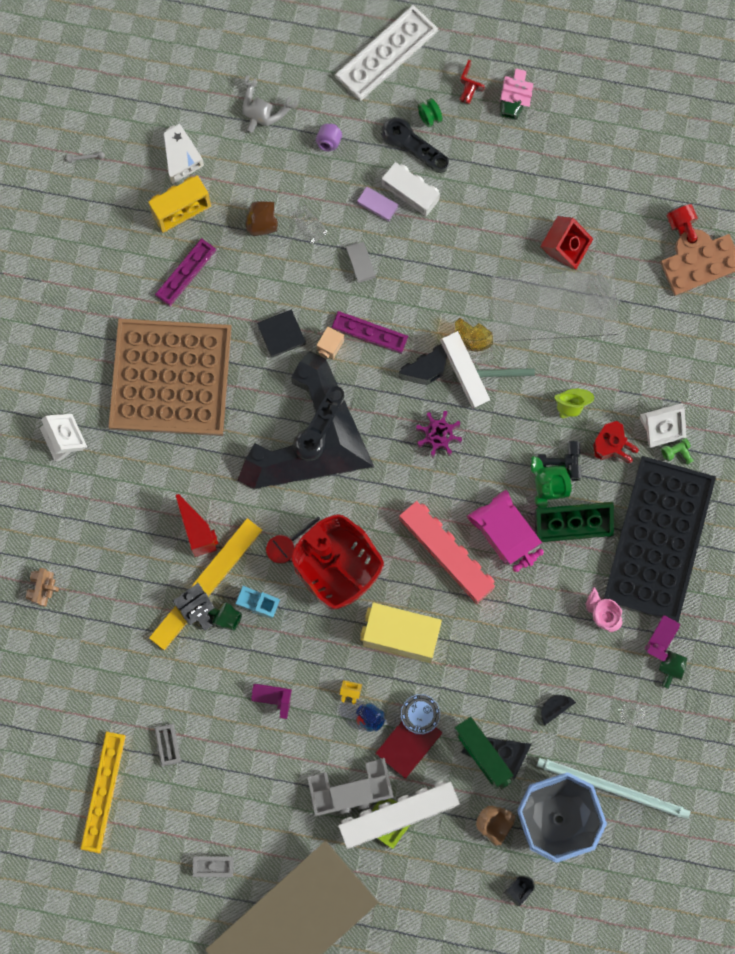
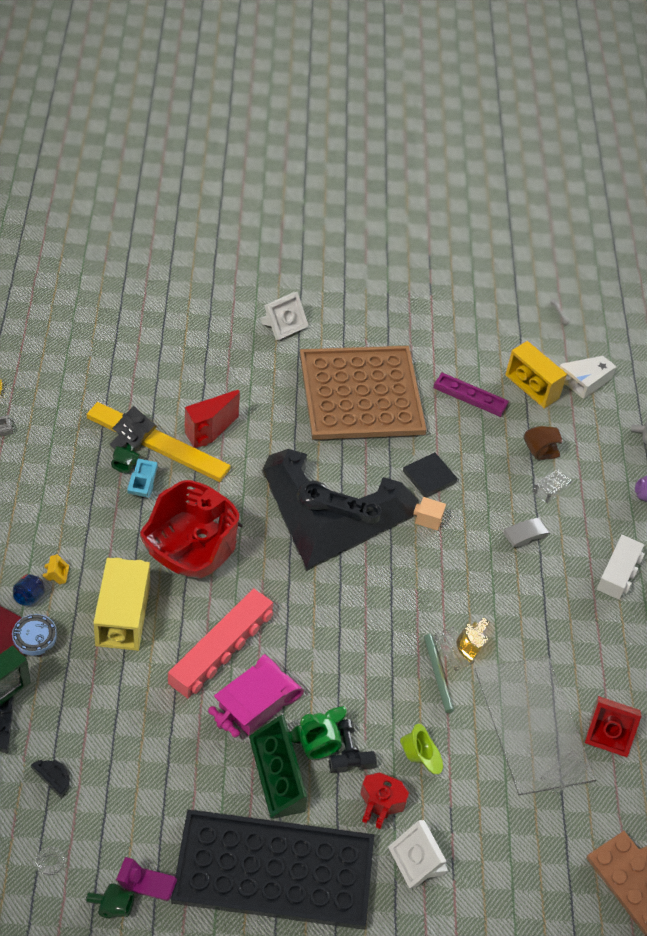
camera: 75 degrees right, 25 degrees down
(43, 588) = (137, 319): medium nougat hips -> none
(273, 695) = (44, 509): magenta bracket -> none
(369, 332) = (452, 550): magenta tile -> none
(377, 204) = (594, 542): lavender tile -> none
(426, 368) = (428, 604): black slope -> none
(437, 441) = (354, 621): magenta gear -> none
(465, 369) = (431, 634): white tile -> none
(605, 612) = (171, 810): bright pink hair -> none
(668, 453) = (395, 883): bright green piece -> none

